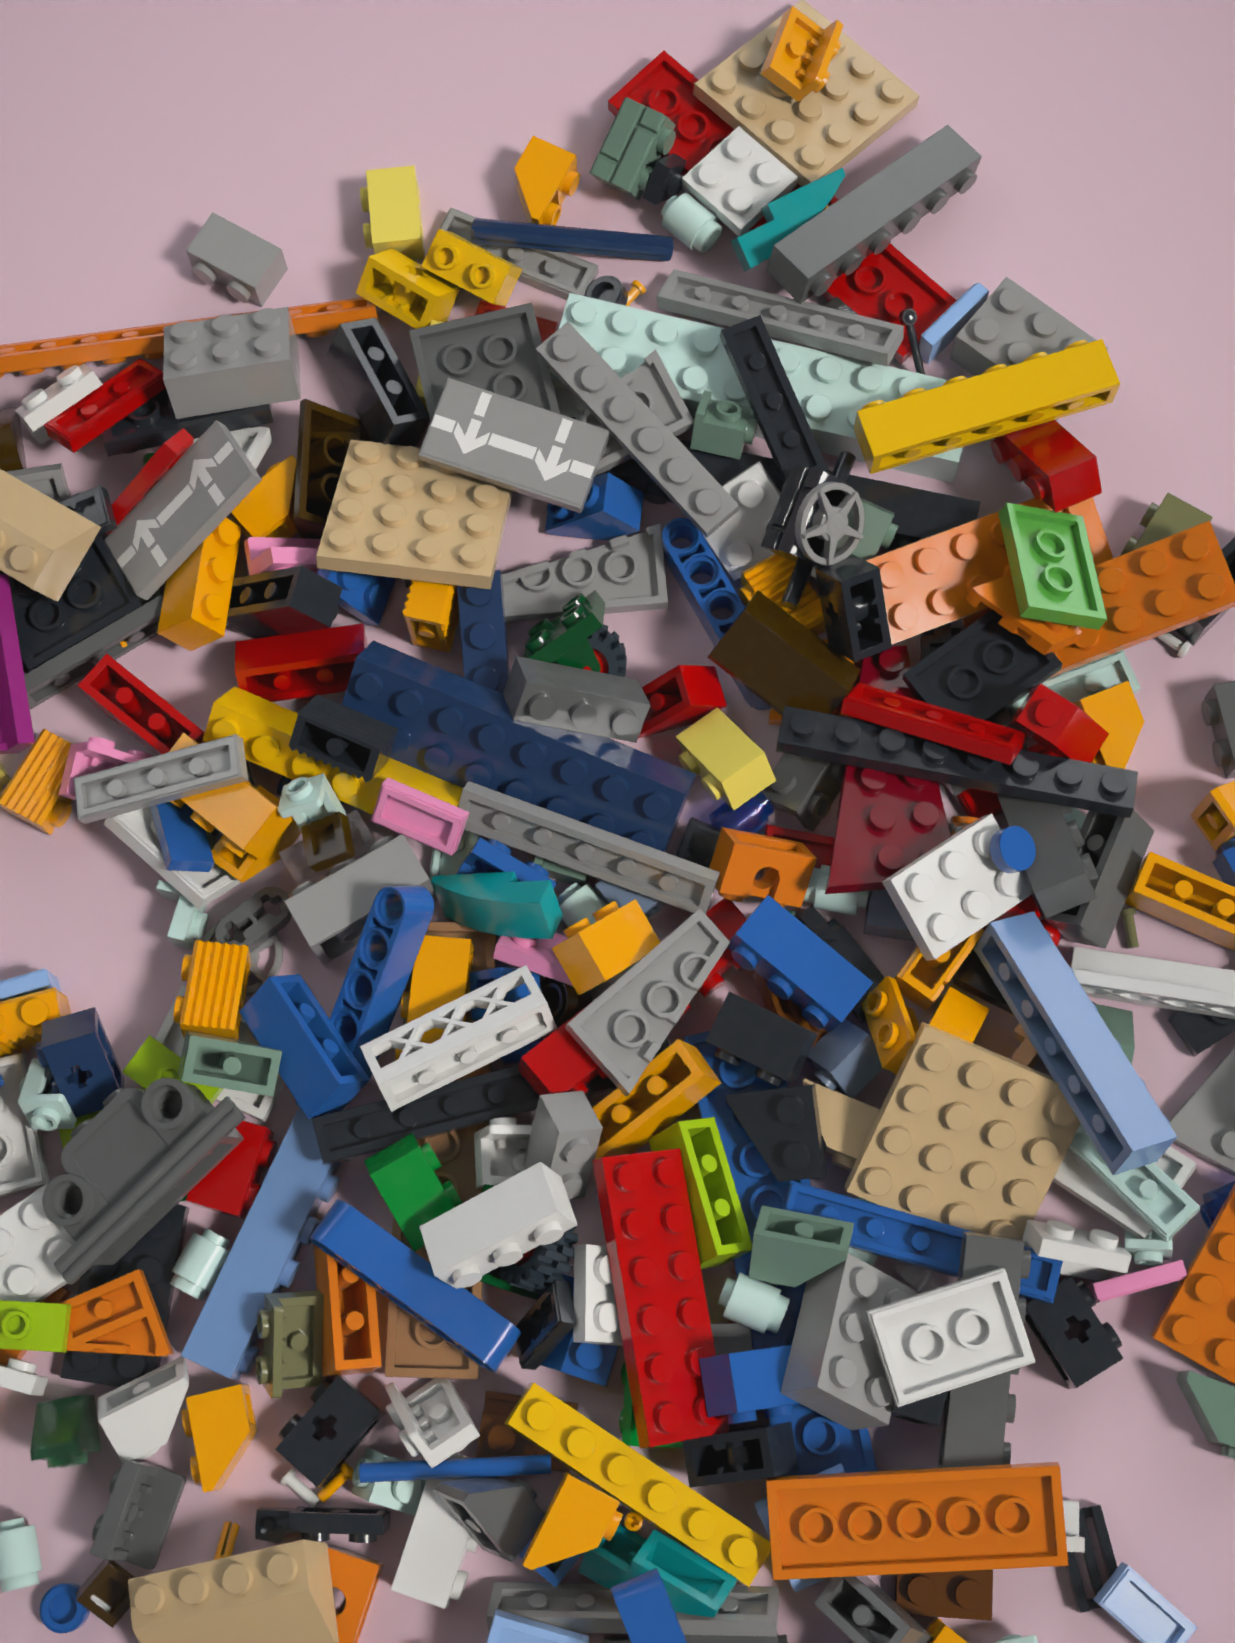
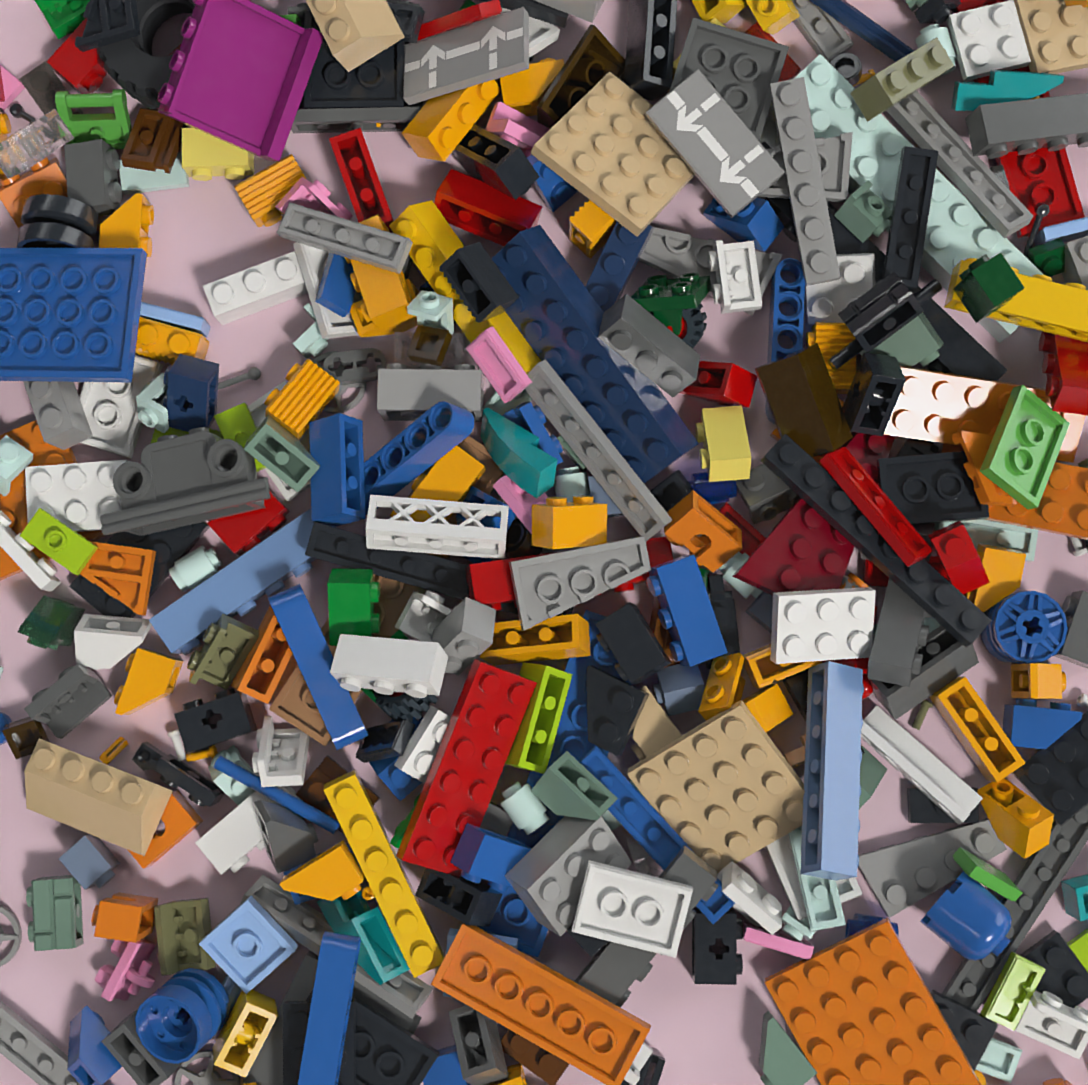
camera: 30 degrees right, 10 degrees up
(89, 900) = (256, 288): none -> white brick
(139, 1001) = (254, 374): none -> dark grey hinge
(624, 573) = (736, 276): none -> white bracket
(673, 268) = (902, 79): none -> olive brick
(830, 523) = (892, 328): light grey wheel -> none
(903, 417) = (987, 286): none -> dark green brick
(946, 361) = (1049, 257): none -> dark green plate
(1012, 849) = (873, 623): blue tile -> none
(1164, 781) = (1007, 637): none -> blue wheel

